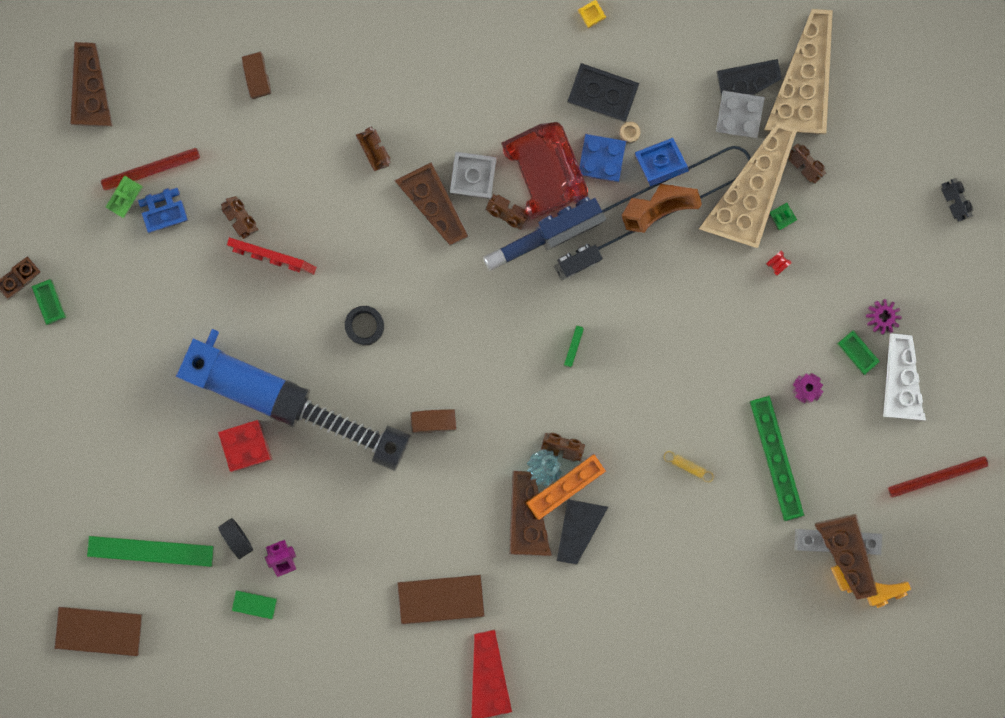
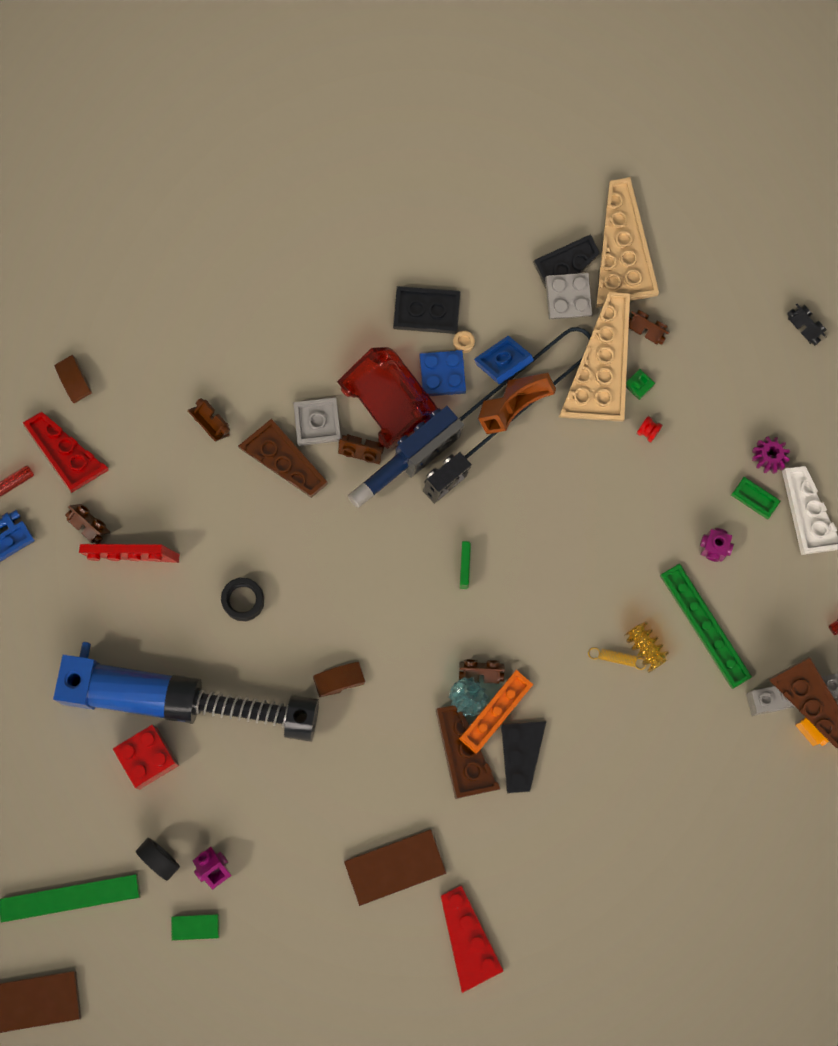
camera: 20 degrees left, 10 degrees down
(234, 148) = (64, 453): none -> red wing
(592, 13) = (395, 239): yellow tile -> none
(717, 463) = (647, 646): none -> clear yellow piece

